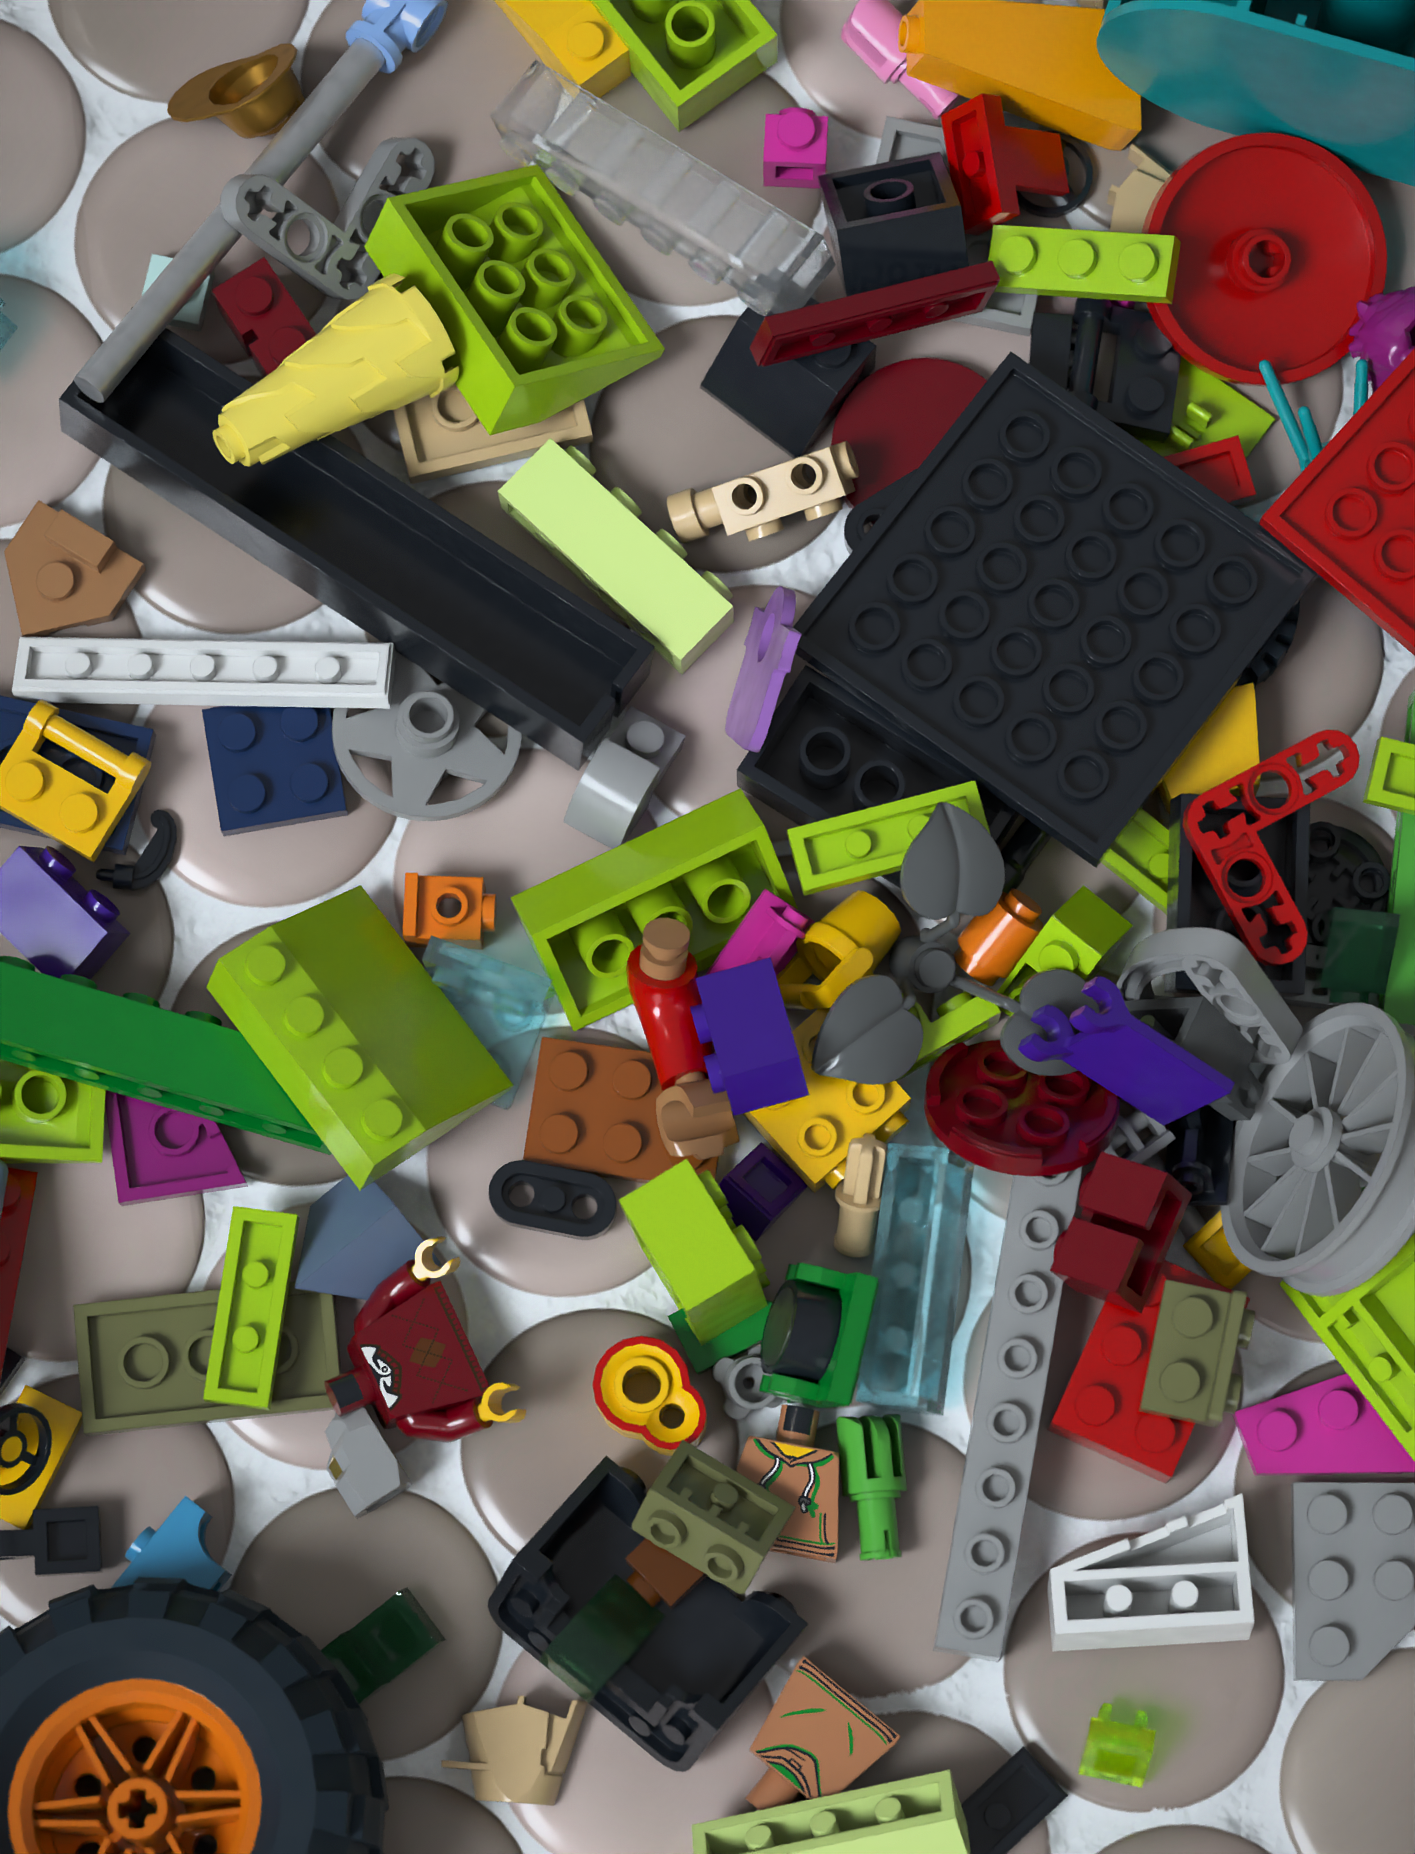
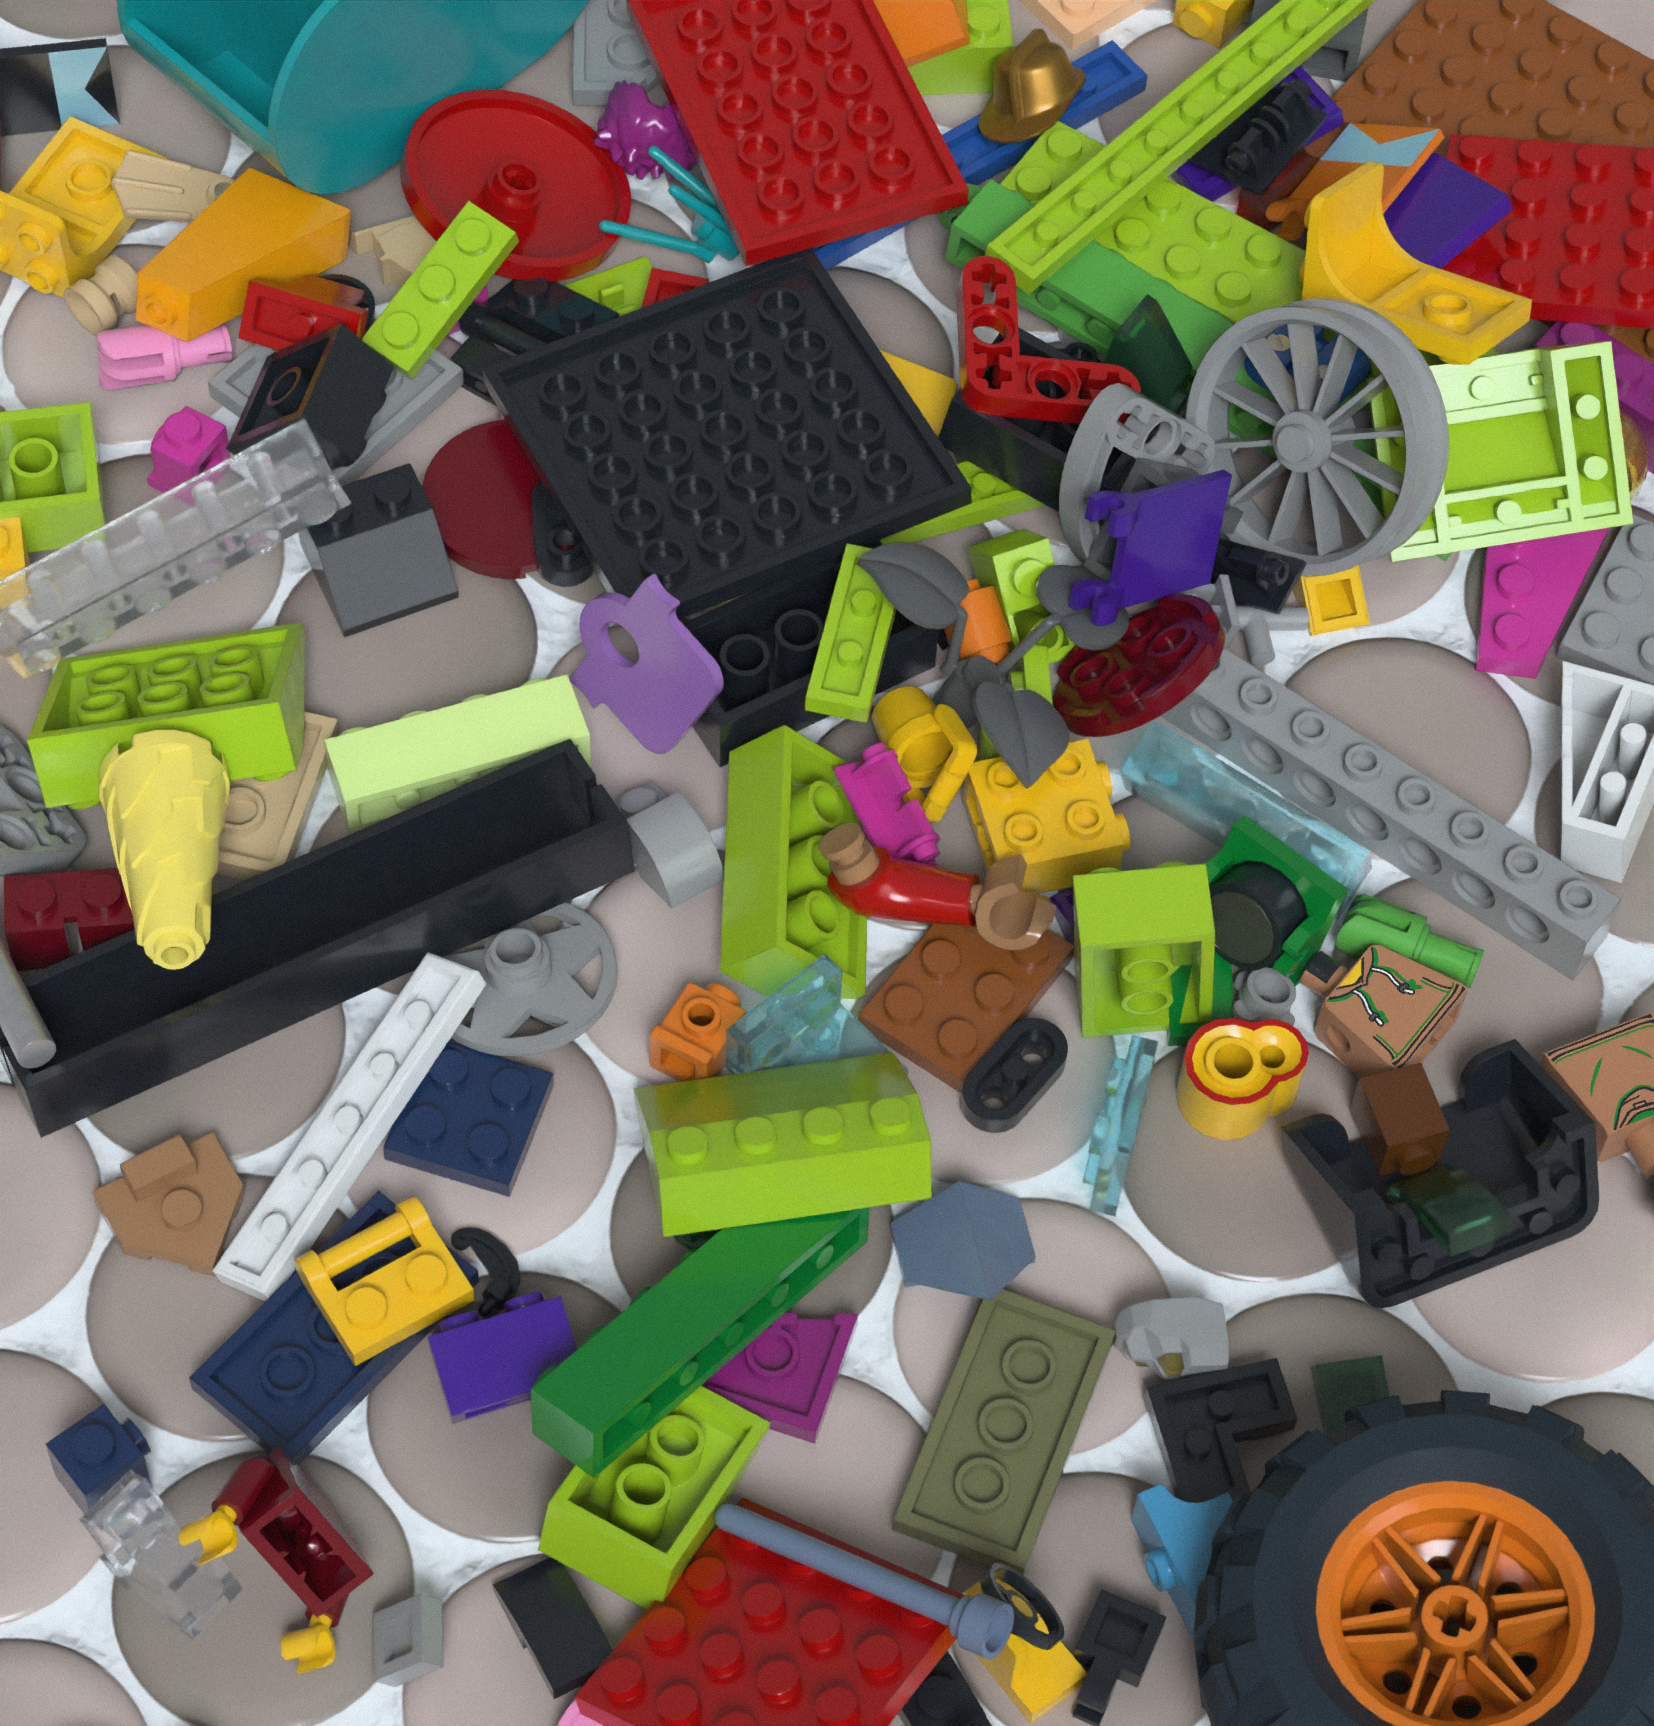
camera: 70 degrees left, 20 degrees down
(251, 1308) = (987, 1352): lime plate -> none
(295, 1516) = (1204, 1418): none -> black plate
(418, 1360) = (1107, 1242): dark red torso -> none
(504, 1322) = (1119, 1124): none -> clear light blue plate
(519, 1752) = (1510, 1344): tan piece -> none
(712, 1517) = (1391, 1053): olive bracket -> none
(751, 1037) = (974, 810): dark purple brick -> none
(779, 493) = (482, 609): tan brick -> none
(860, 1196) = (1147, 820): tan axle -> none
(874, 314) = (387, 439): dark red tile -> none
(1108, 1383) = (1409, 686): red brick -> none
(1122, 1231) = (1298, 628): dark red piece -> none
(1195, 1354) = (1434, 620): olive bracket -> none

